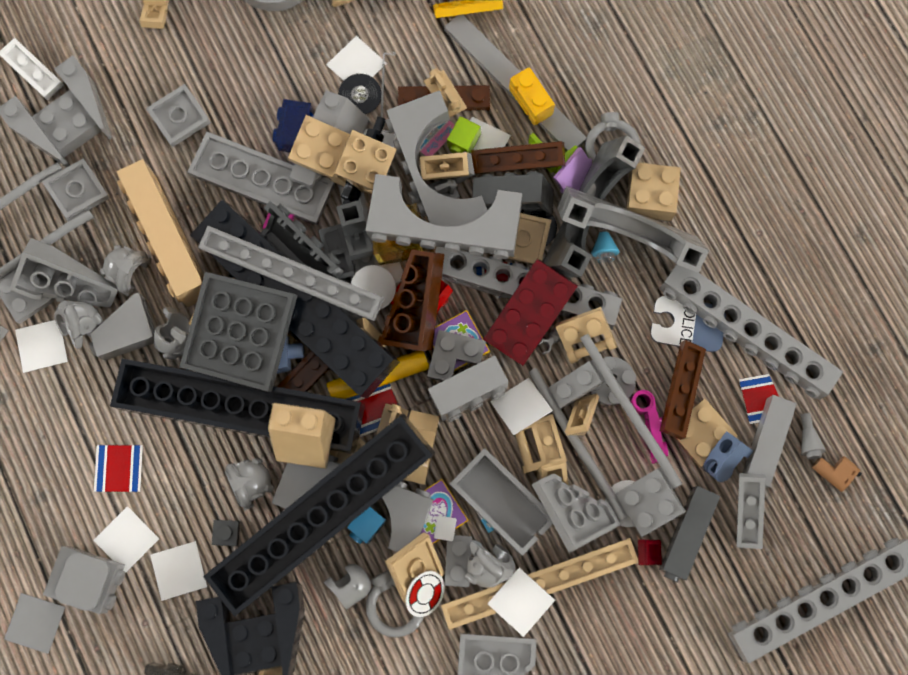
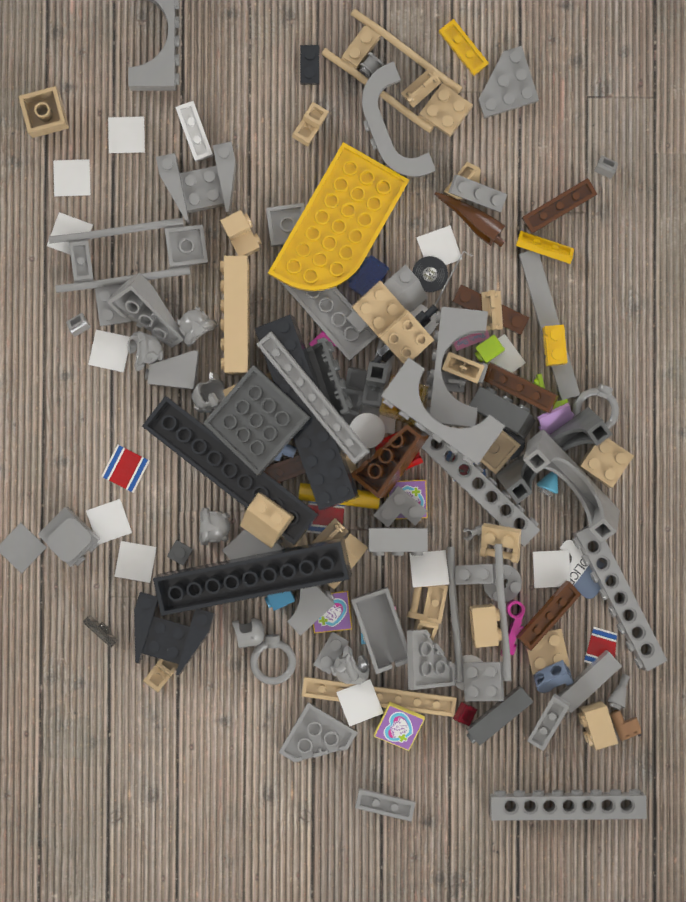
camera: 25 degrees right, 10 degrees up
(125, 143) = (238, 230): none -> tan brick
(232, 86) = (339, 222): none -> yellow plate
(387, 17) = (480, 222): none -> reddish brown piece
(412, 561) = (299, 644): tan plate -> none
(425, 593) = (297, 664): sticker -> none
(445, 528) = (333, 626): white sticker -> none
(530, 312) = (469, 506): dark red plate -> none
(581, 606) = (399, 726): none -> tile
(582, 415) = (468, 597): tan slope -> none
(617, 436) = (484, 625): none -> tan brick
(656, 338) = (551, 568): none -> white sticker
(808, 485) = (598, 725): none -> tan brick

